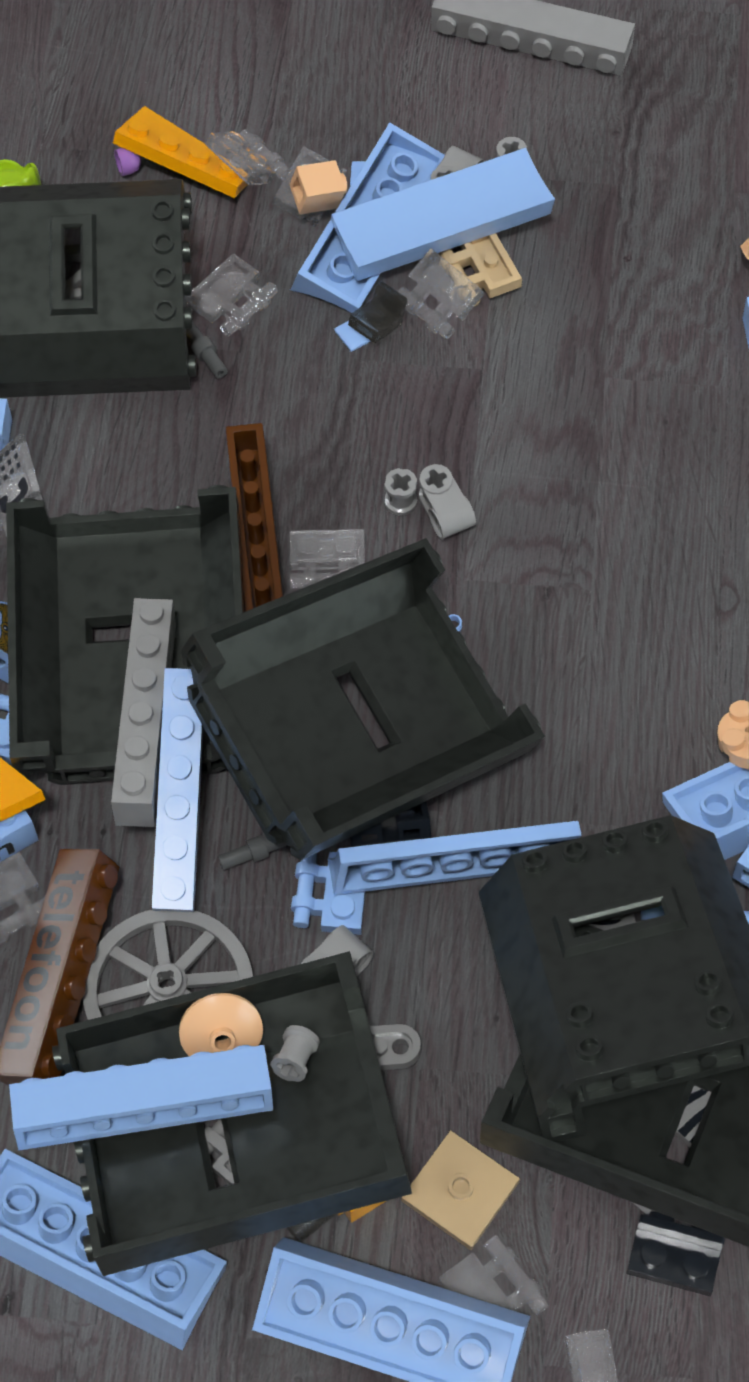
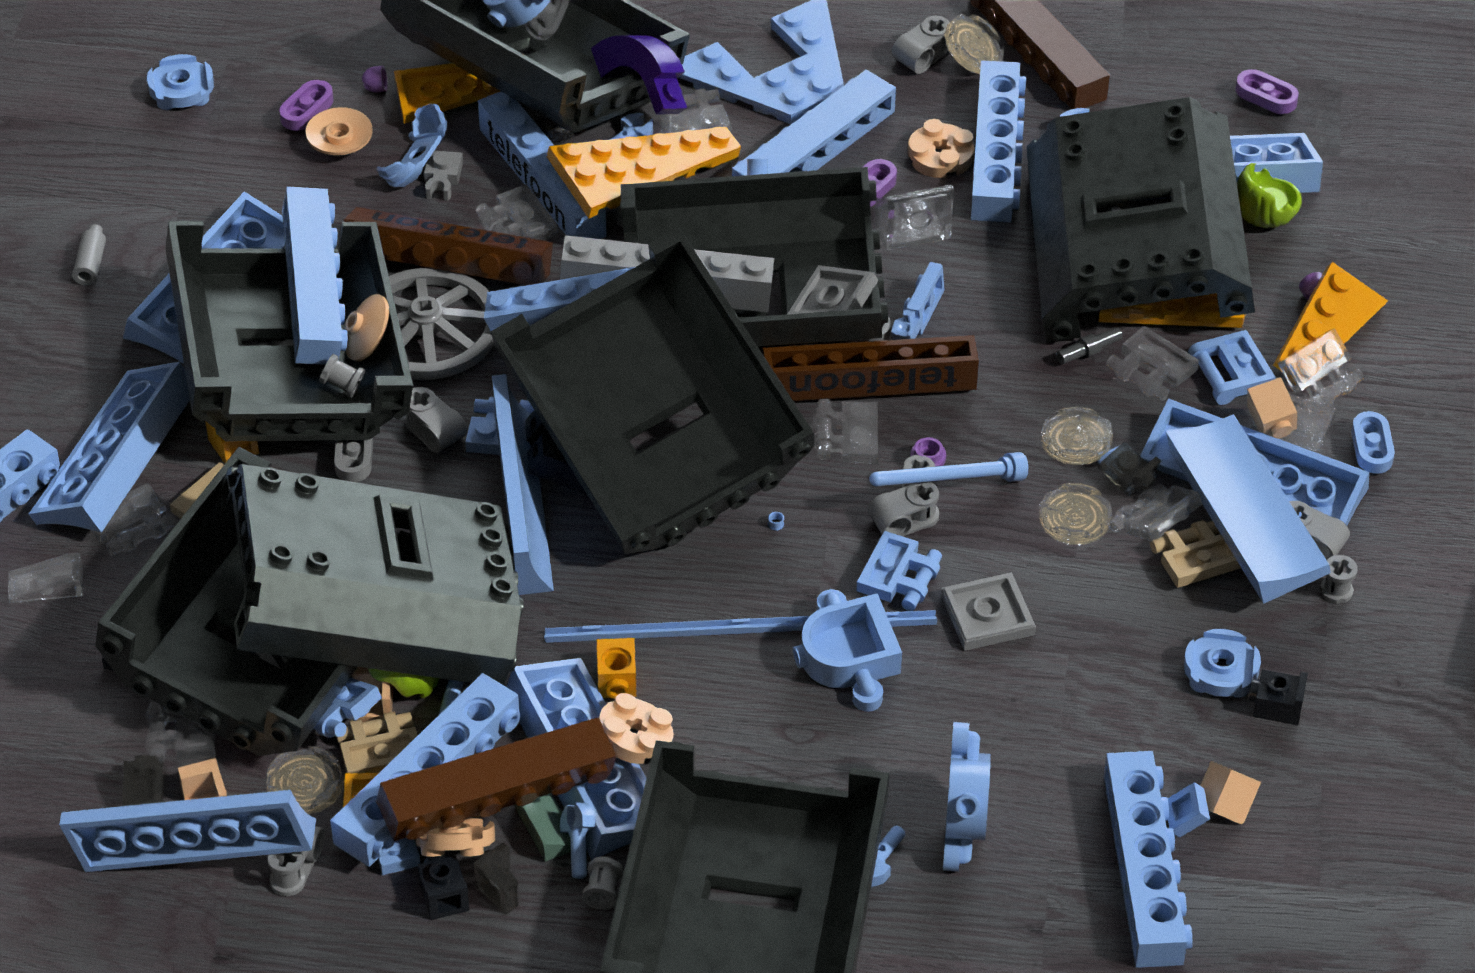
camera: 90 degrees right, 15 degrees down
(151, 490) = (921, 305): none -> light blue hinge
(173, 555) = (834, 290): none -> light grey tile
(230, 222) = (1239, 358): none -> light blue plate
(328, 361) = (1076, 436): none -> clear tile
(334, 127) = (1372, 442): none -> light blue plate
(364, 479) = (930, 448): none -> medium lavender plate
(380, 414) = (1009, 467): none -> light blue piece
(430, 366) = (1075, 514): none -> clear tile
(518, 518) = (889, 565): none -> light blue plate
(562, 438) = (988, 611): none -> light grey tile
(598, 657) = (712, 627): none -> light blue piece
(616, 269) = (1221, 680): none -> light blue plate
(627, 546) = (850, 646): none -> light blue piece
(653, 209) = (1278, 696): none -> black brick
(670, 769) = (616, 667): none -> light orange brick

